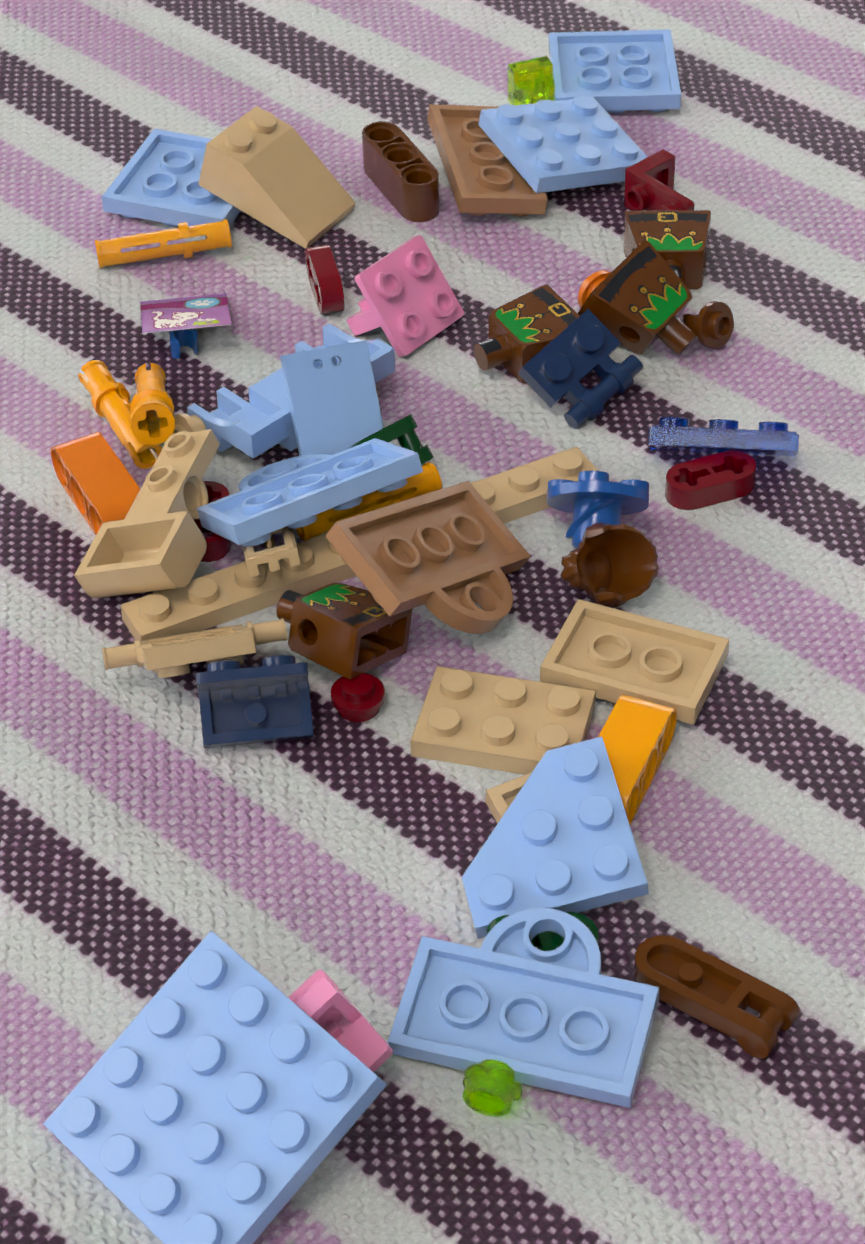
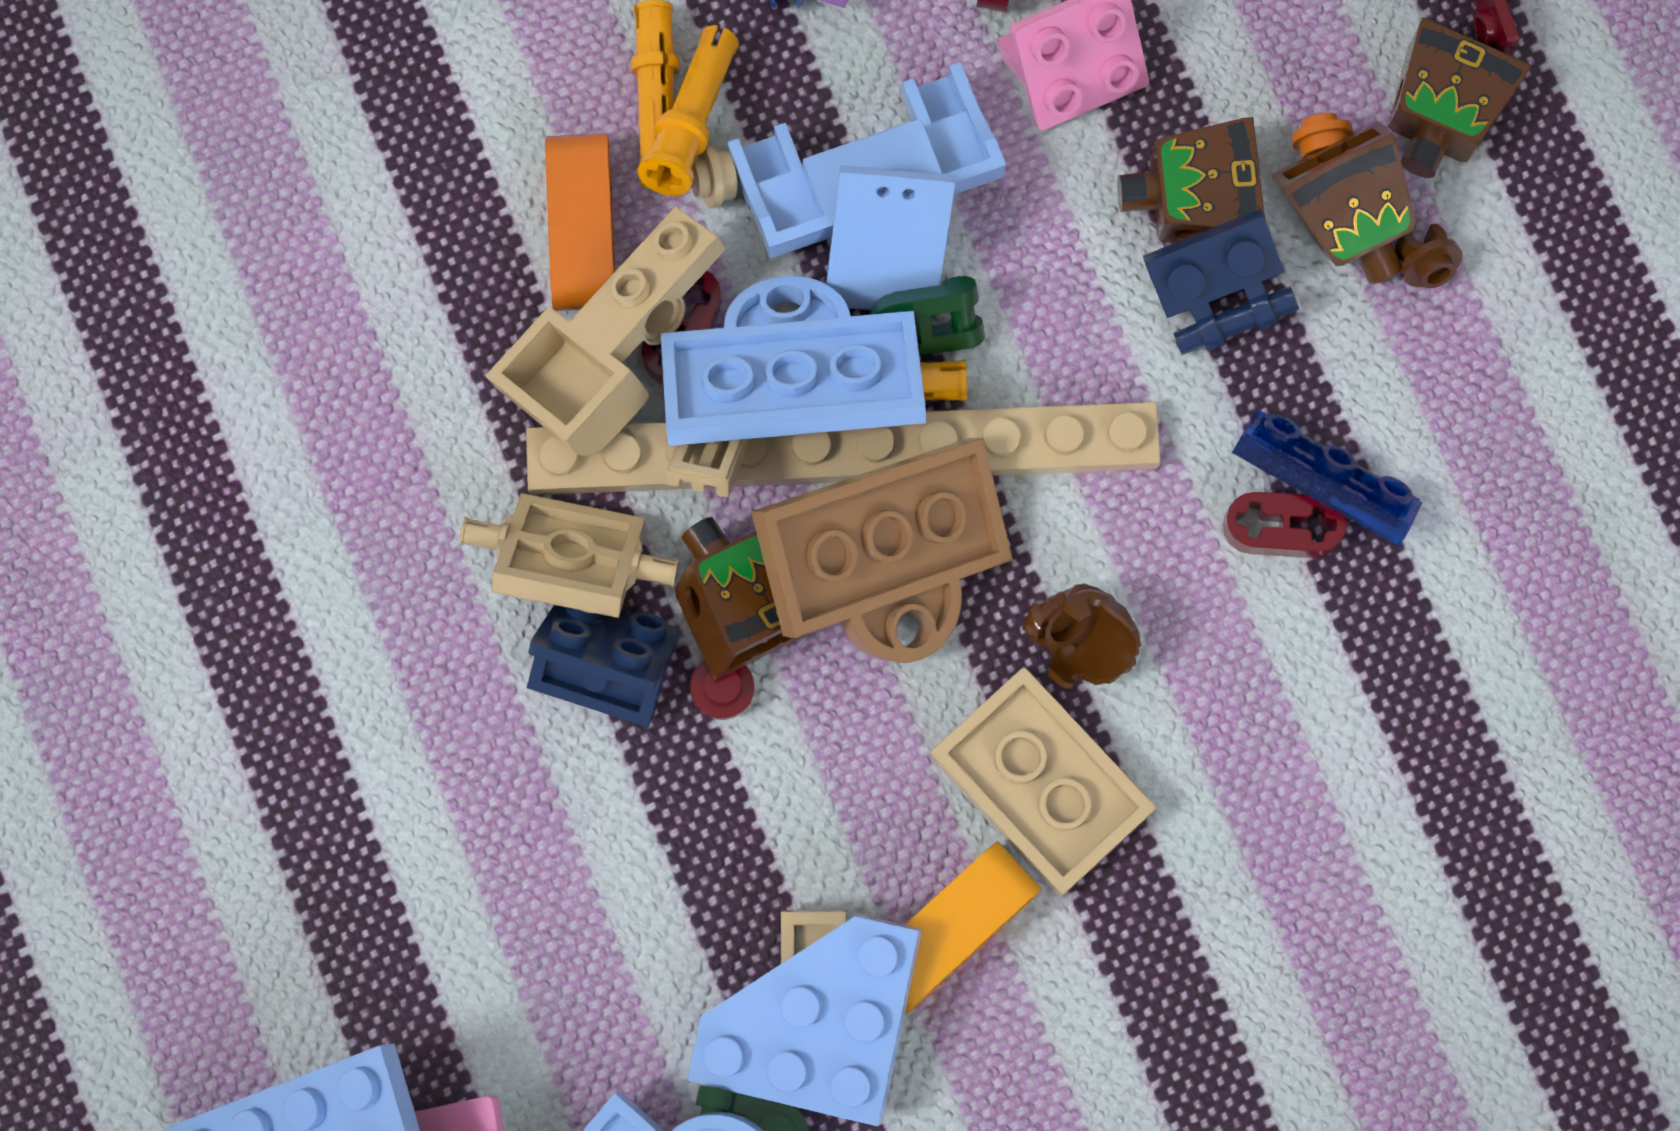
camera: 20 degrees right, 35 degrees up
(498, 720) = (860, 799): tan plate -> none
(596, 500) = (1116, 534): blue plate -> none

